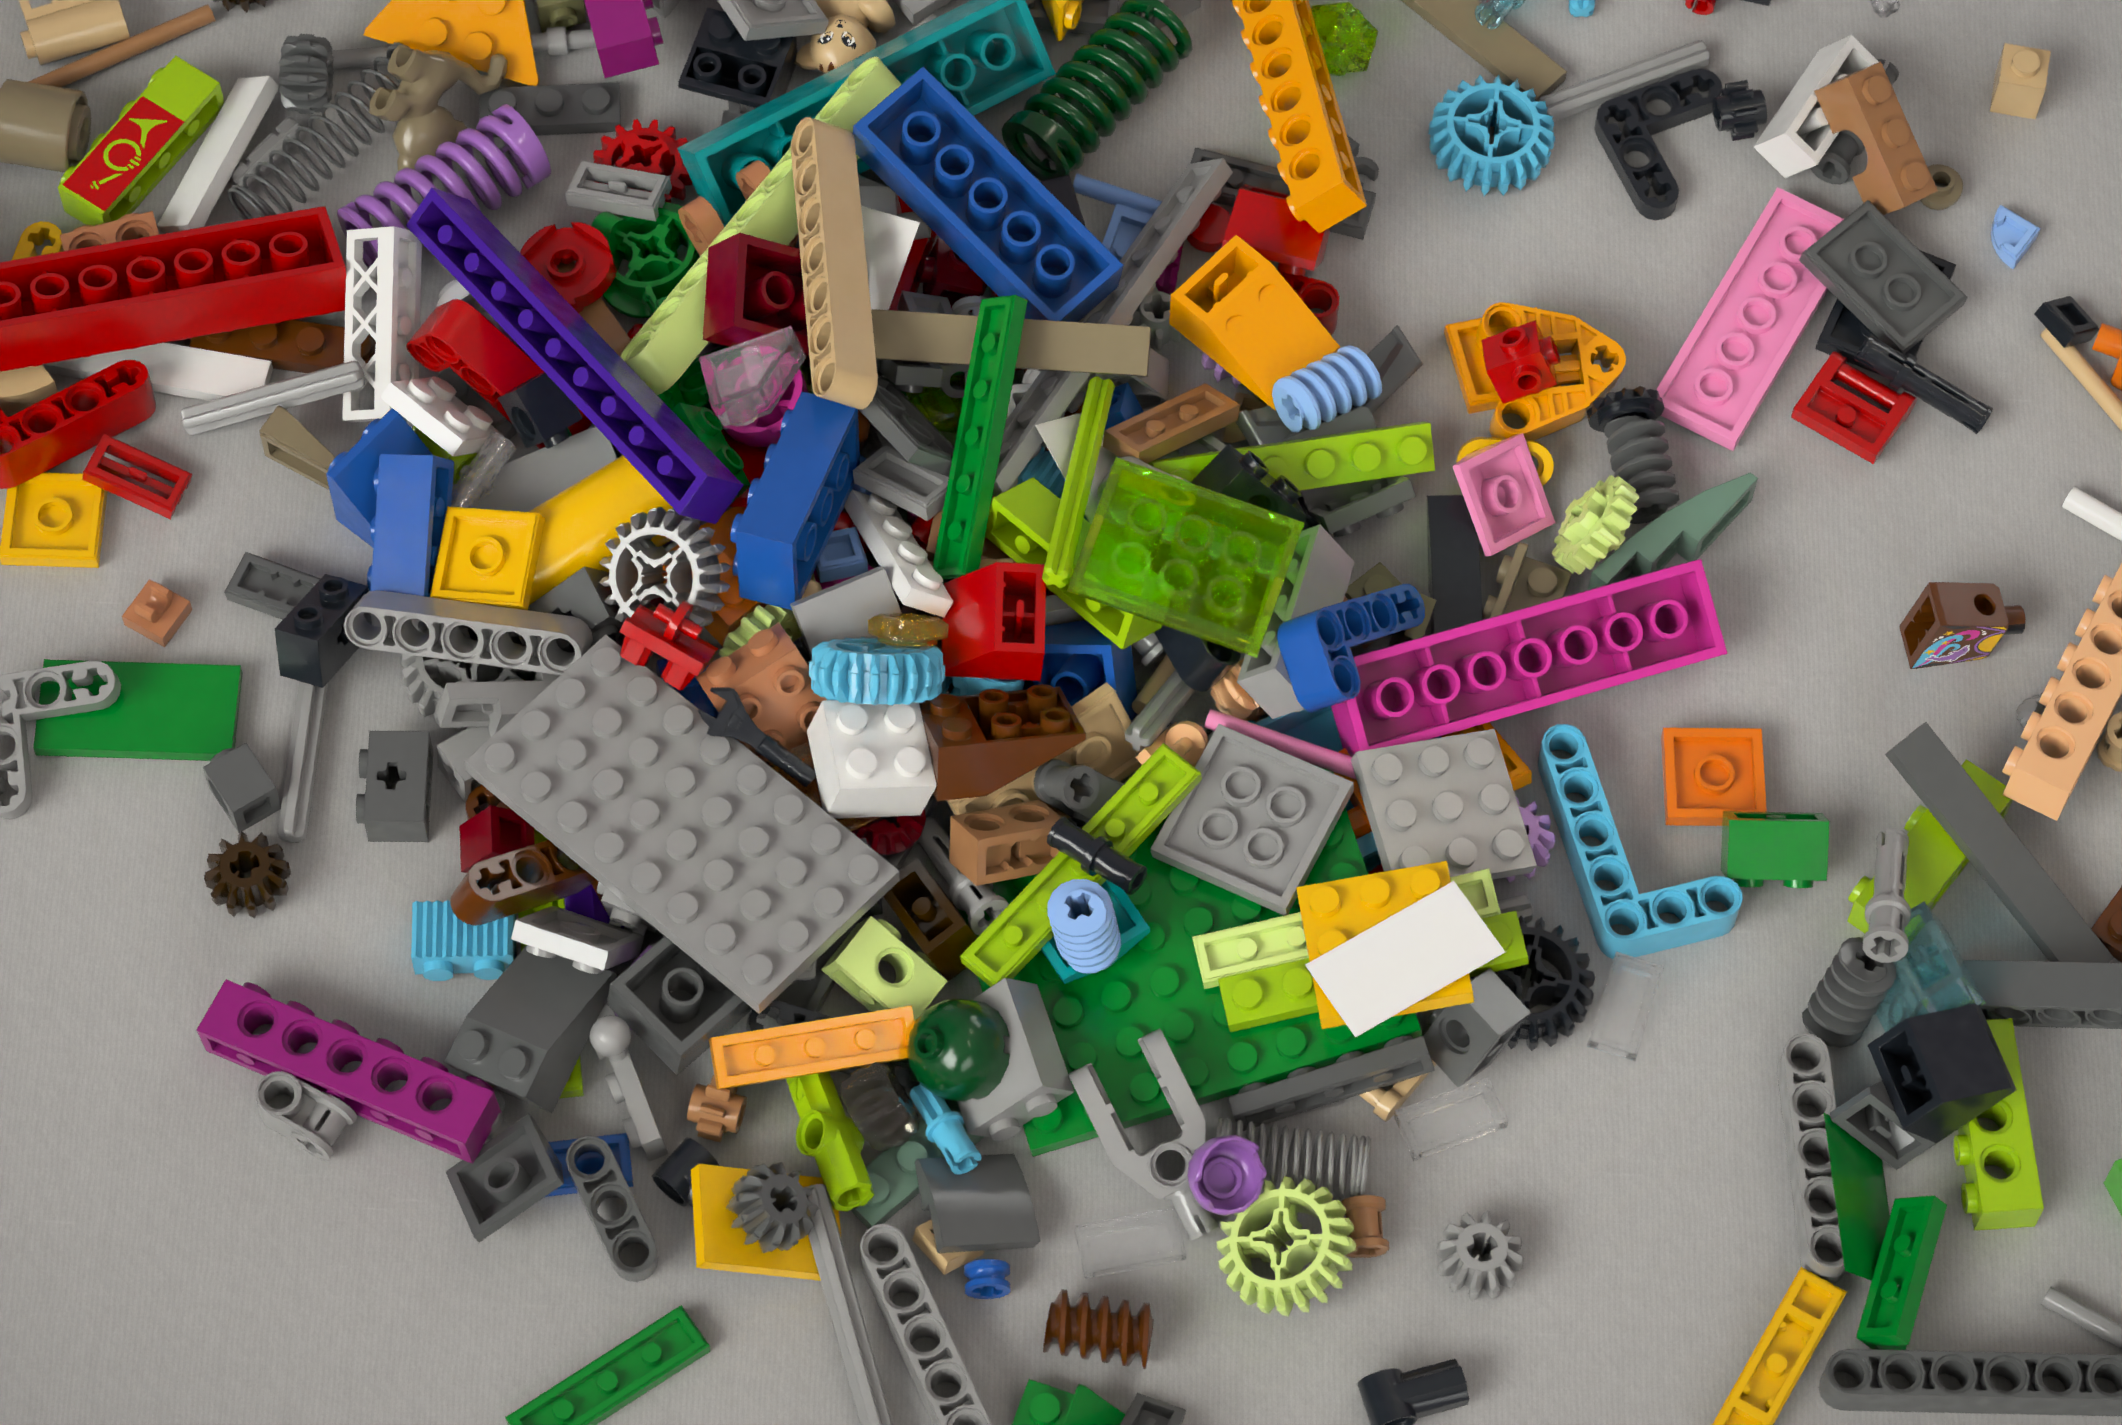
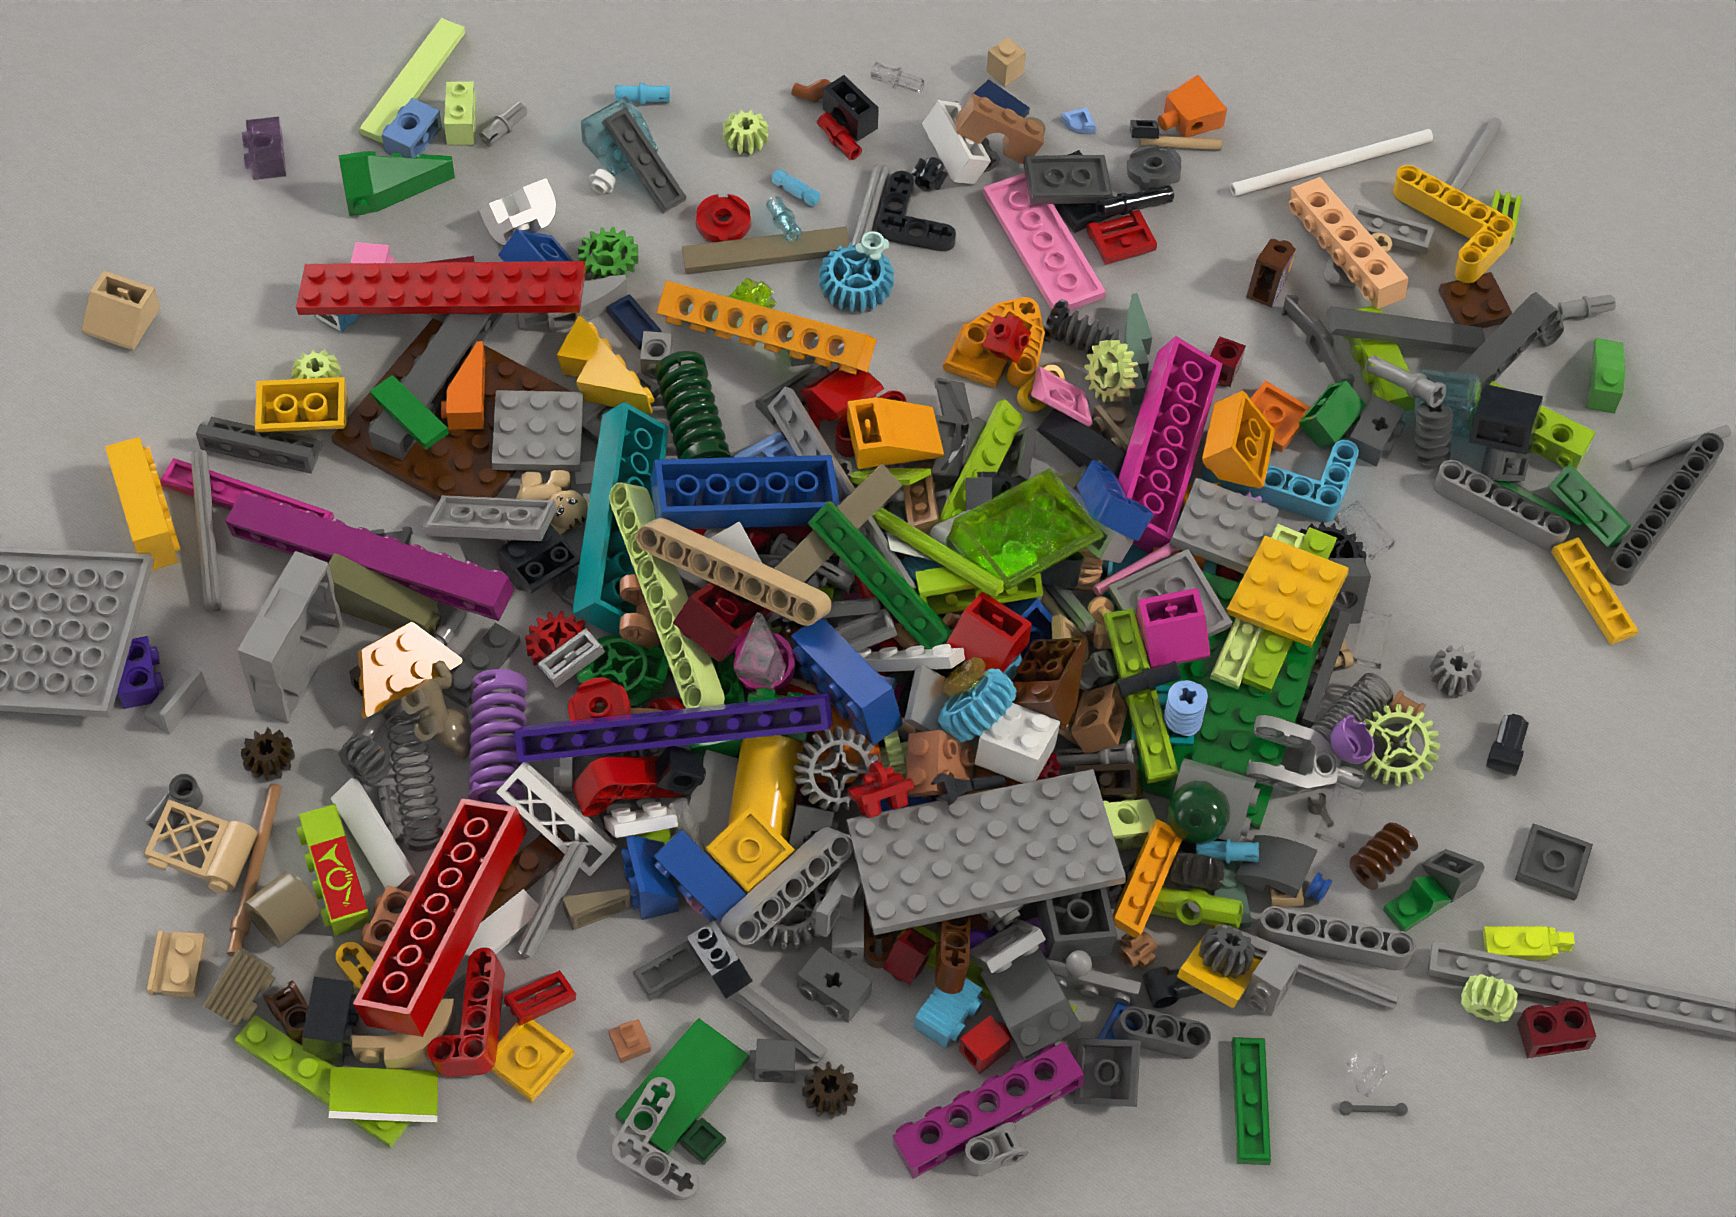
camera: 55 degrees left, 5 degrees down
(82, 780) = (702, 1141): none -> dark green tile
(439, 1009) = (985, 1044): none -> red brick
(783, 1295) = (1271, 980): none -> light grey brick
(1114, 1210) = (1320, 809): none -> clear smoke hand
(1185, 366) = (905, 476): none -> lime window
(1200, 836) = (1173, 627): none -> dark pink slope
(1326, 388) = (956, 425): light blue piece -> none
(1404, 958) = (1309, 583): white sticker -> none
(1545, 103) = (872, 239): none -> light aqua plate
(1603, 749) = (1238, 441): none -> light orange slope
(1741, 675) = (1231, 356): none -> dark red brick
(1799, 920) = (1376, 430): none -> dark grey brick
(1880, 771) = (1318, 338): none -> dark grey plate
(1949, 122) = (1002, 98): none -> dark blue tile
(2017, 394) = (1165, 170): none -> dark grey plate

